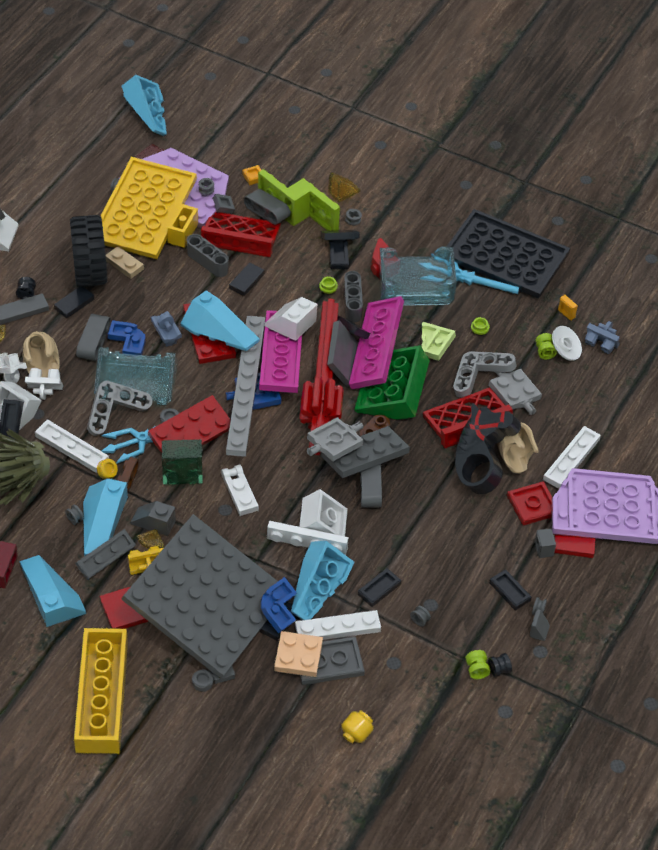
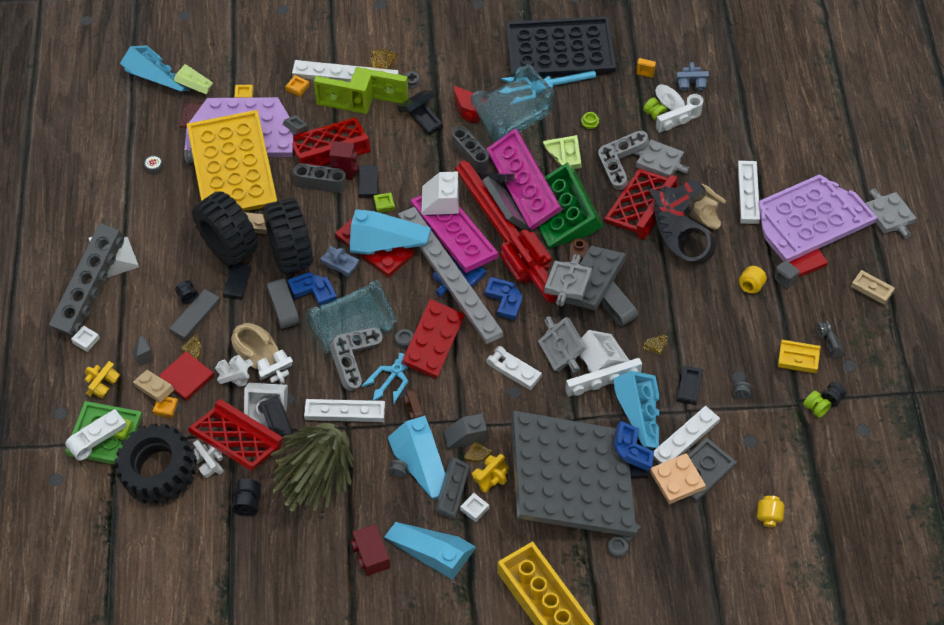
camera: 30 degrees left, 5 degrees up
(85, 178) = (153, 164): none -> tile
(107, 468) = (392, 413): yellow tile -> none
(110, 579) = (474, 507): none -> white plate
(118, 612) = (503, 526): red tile -> none
(133, 281) = (288, 235): none -> black tyre
(170, 127) = (193, 79): none -> yellowish green wing
(182, 225) = (279, 162): yellow brick -> none
(182, 461) = (454, 371): clear green brick -> none
(206, 157) = (243, 91): none -> yellow tile
(206, 190) = (270, 112): dark grey bush -> none
(236, 247) = (344, 157): none -> dark red brick
(245, 302) = (384, 202): none -> lime tile
(267, 206) = (335, 108): dark grey beam -> none
(284, 429) = (508, 294): none -> blue plate
(289, 176) = (309, 70): none -> white plate
(292, 491) = (562, 344): none -> light grey plate
(328, 285) = (441, 150): lime plate -> none
(379, 538) = (656, 344): none -> clear yellow tile
(497, 617) = (799, 356): none -> yellow plate
(509, 530) = (752, 279): none -> yellow head
(510, 589) = (789, 328): black tile -> none
(531, 503) = (747, 246): red tile -> none
(566, 362) = (681, 115): none -> white plate
(617, 597) = (872, 287): none -> tan plate

